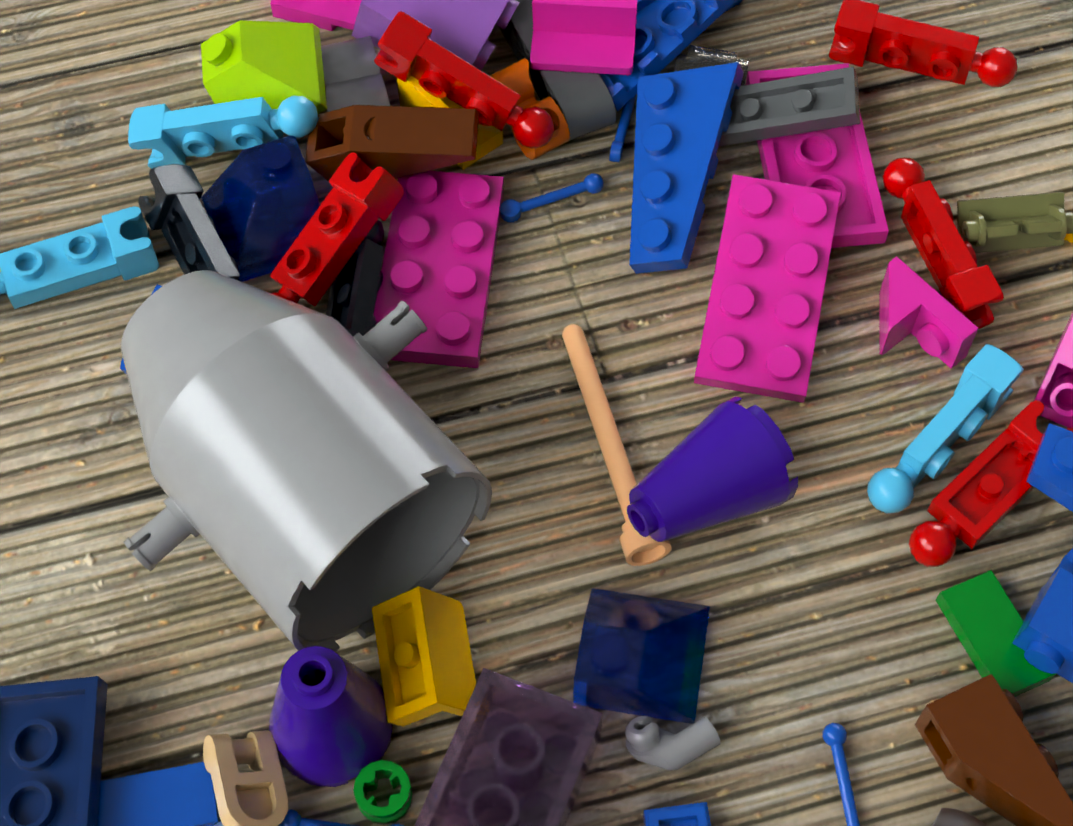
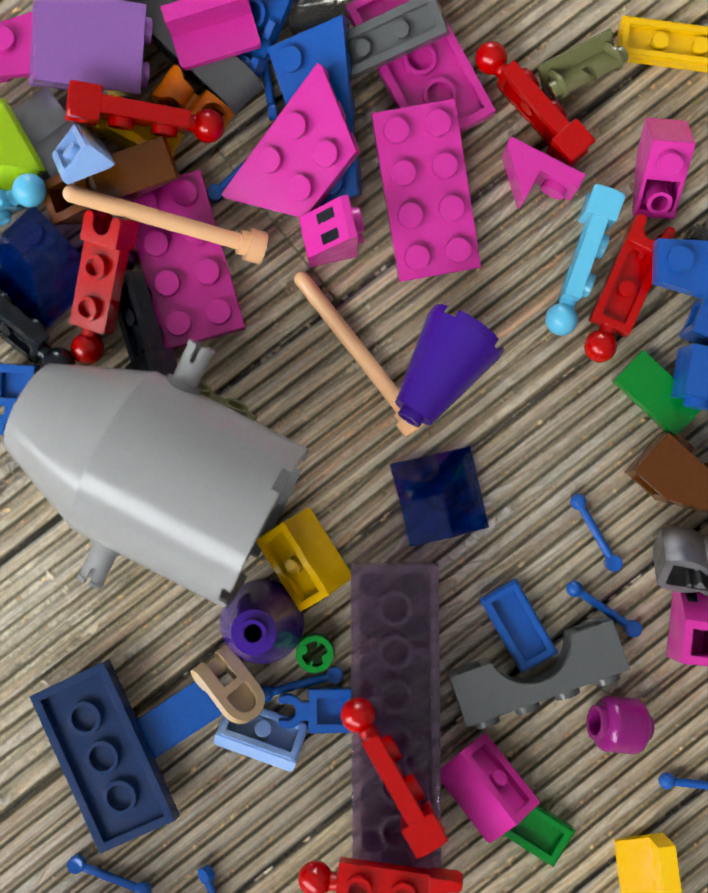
camera: 25 degrees left, 25 degrees up
(375, 90) = (81, 155): none -> light blue slope
(522, 267) = (249, 244): none -> light nougat piece
(627, 191) = (300, 152): none -> dark pink wing
(632, 286) = (332, 232): none -> dark pink slope
(666, 749) = (479, 553): light grey arm -> none

